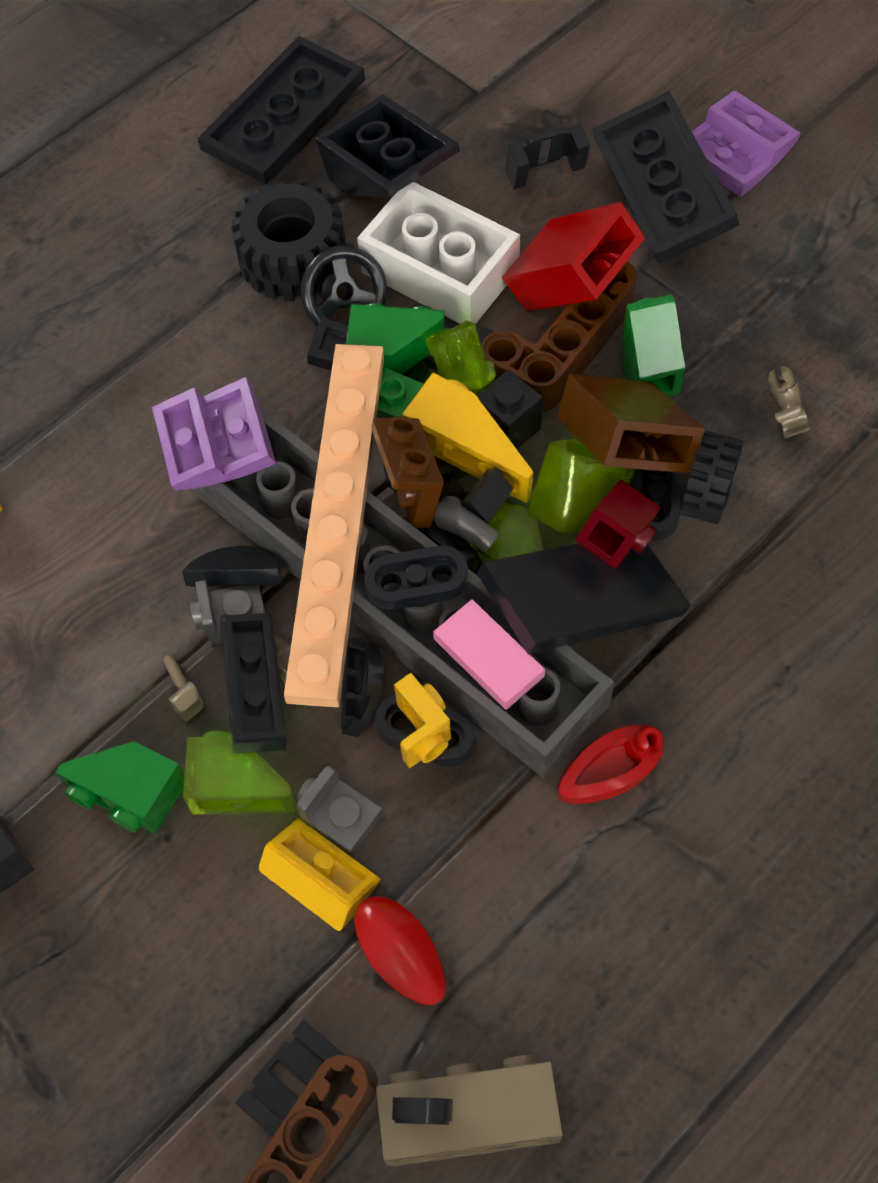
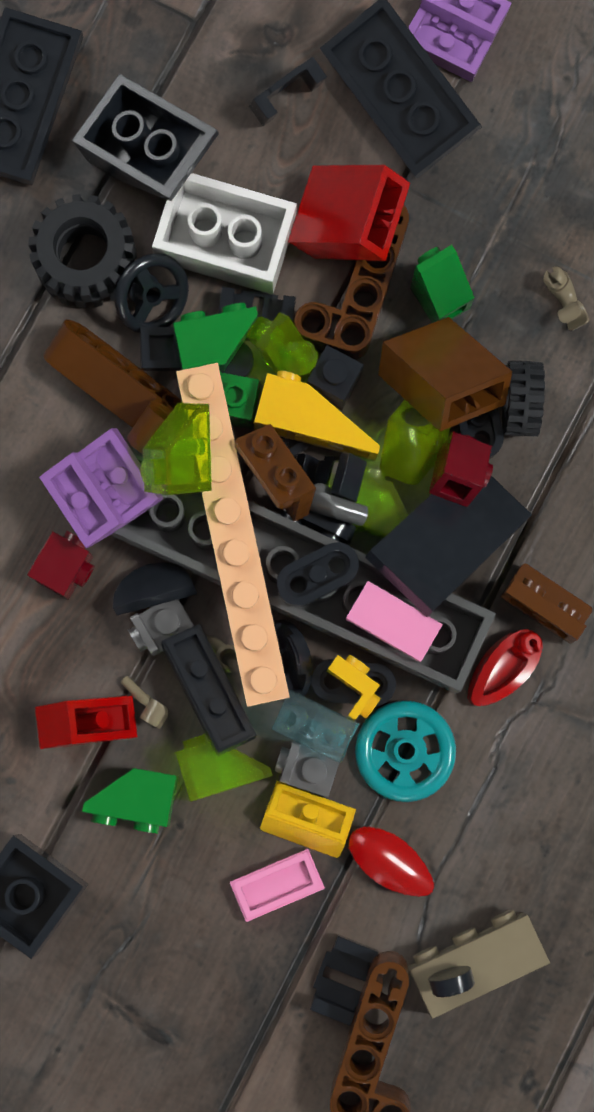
camera: 25 degrees left, 20 degrees up
(105, 684) = (85, 721): none -> red slope
(147, 518) = (62, 564): none -> dark red brick
(253, 939) = (277, 885): none -> bright pink tile
(292, 385) = (111, 380): none -> reddish brown beam
(305, 414) = (179, 452): none -> clear neon green slope
(359, 755) = (315, 726): none -> clear light blue hips
(446, 867) = (403, 787): none -> teal plate
(679, 703) = (547, 603): none -> reddish brown bracket

